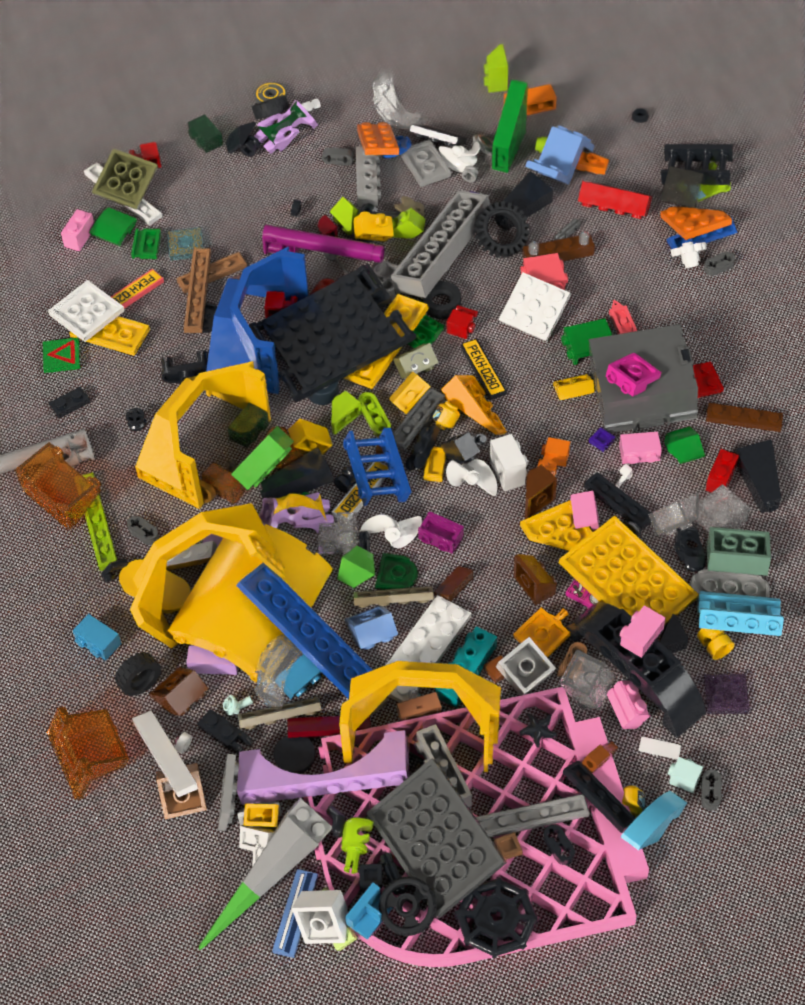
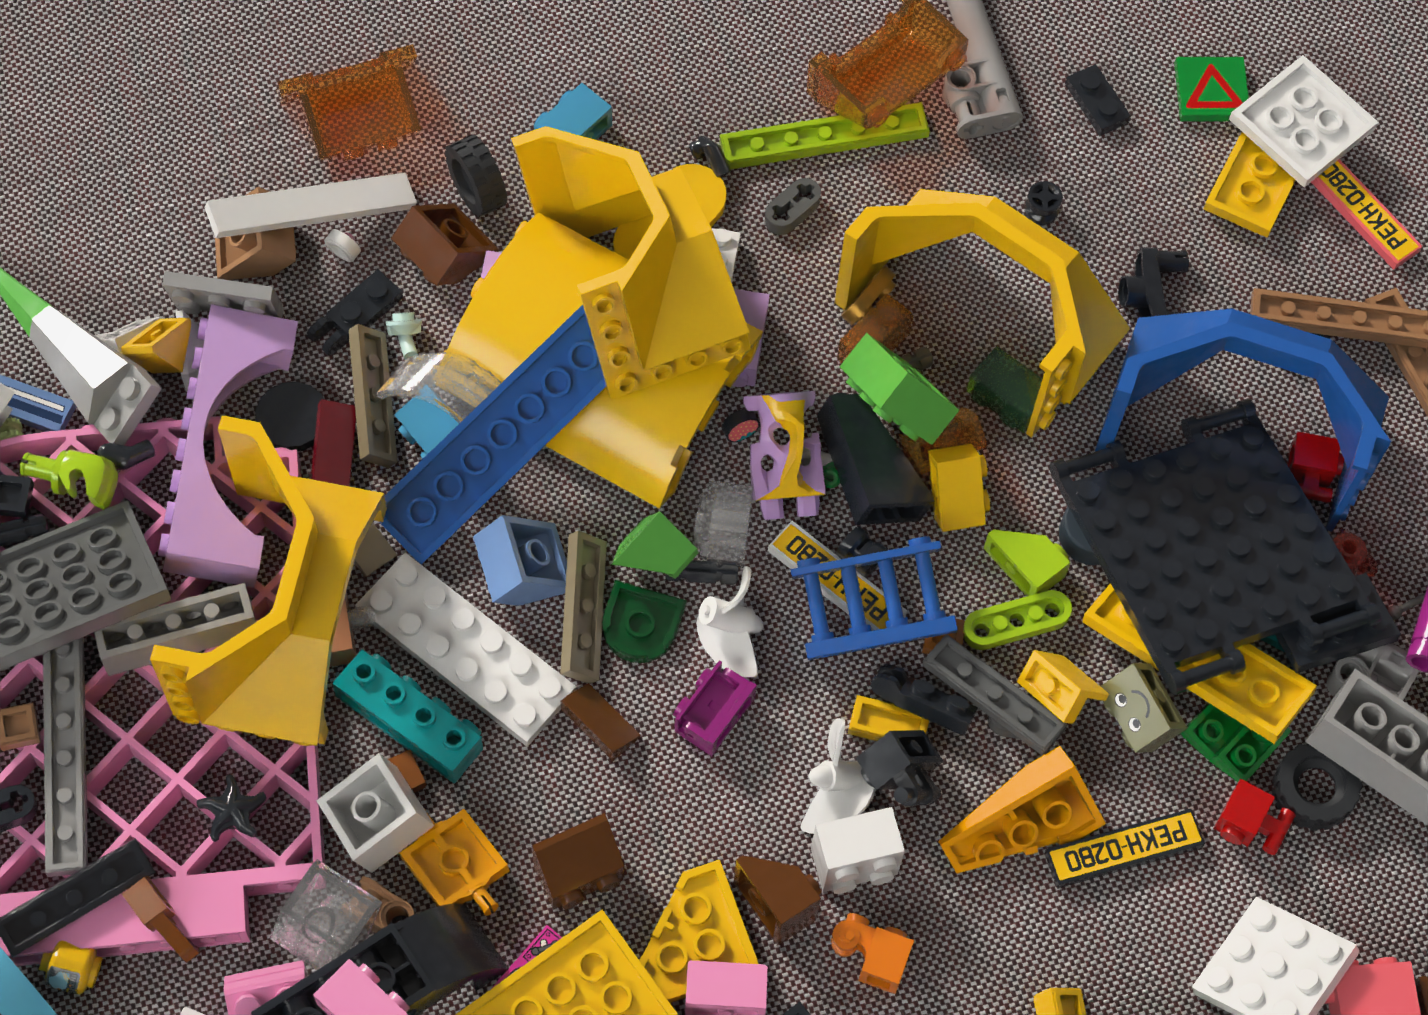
camera: 90 degrees right, 10 degrees up
(446, 415) = (996, 751): yellow head -> none

